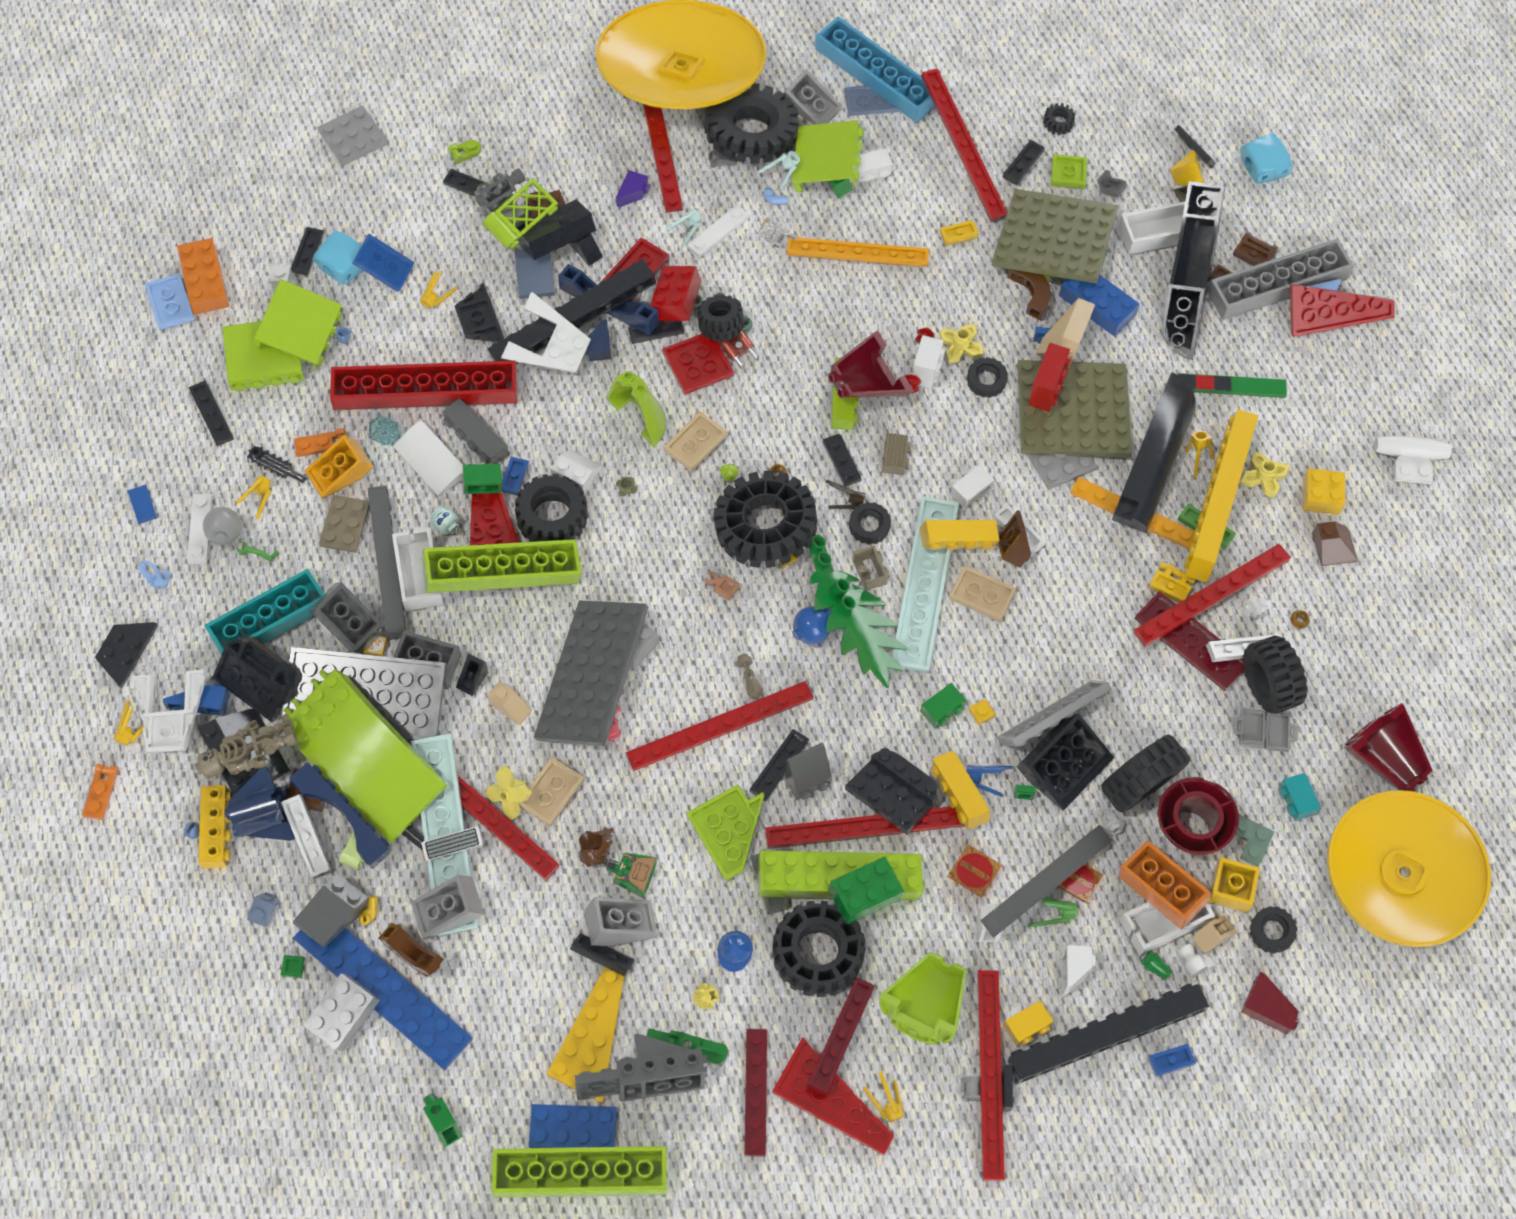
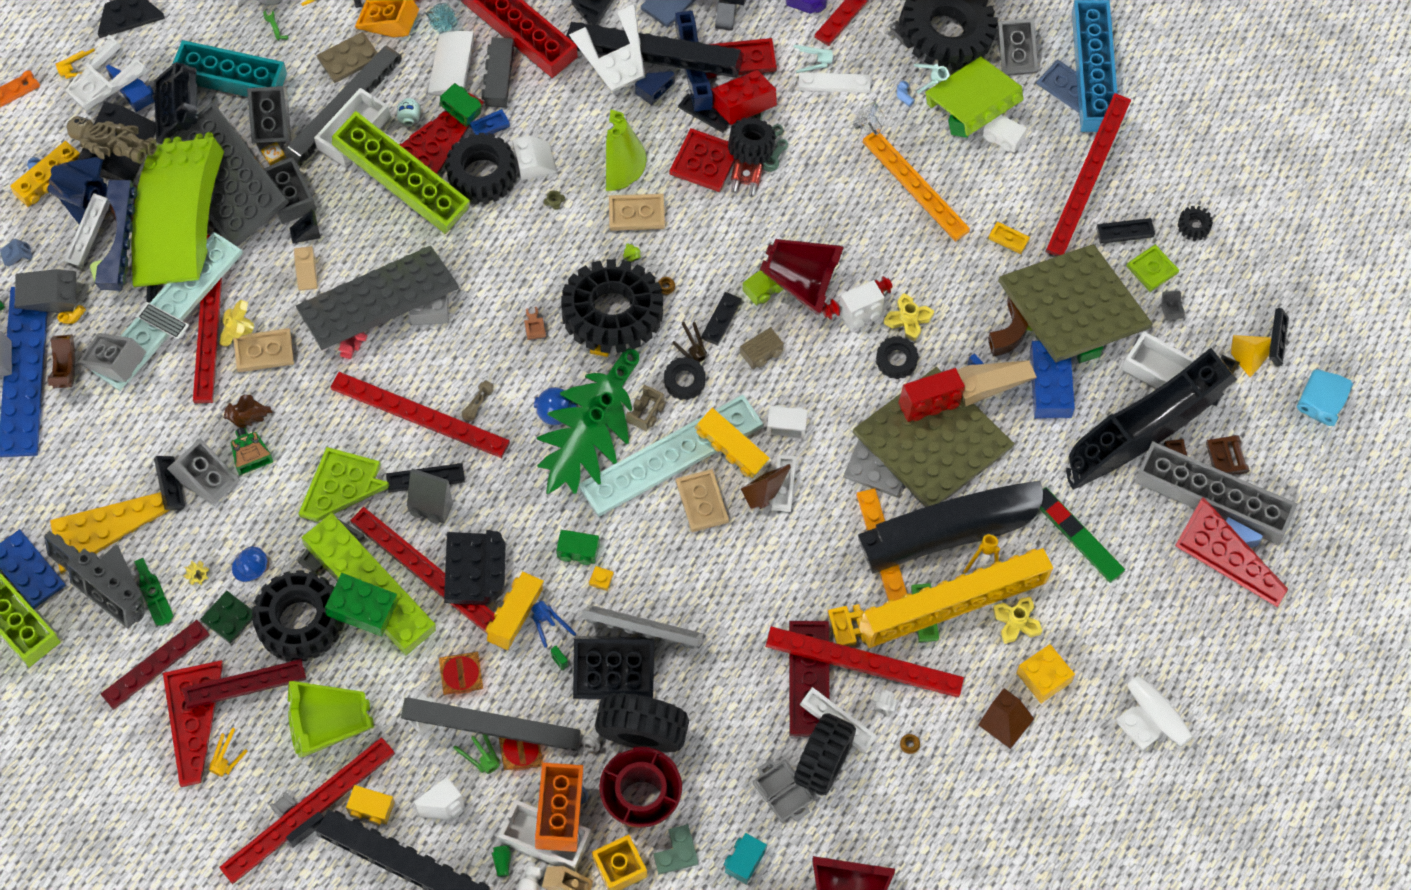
camera: 50 degrees right, 0 degrees up
(765, 1003) = (228, 617): none -> dark green plate

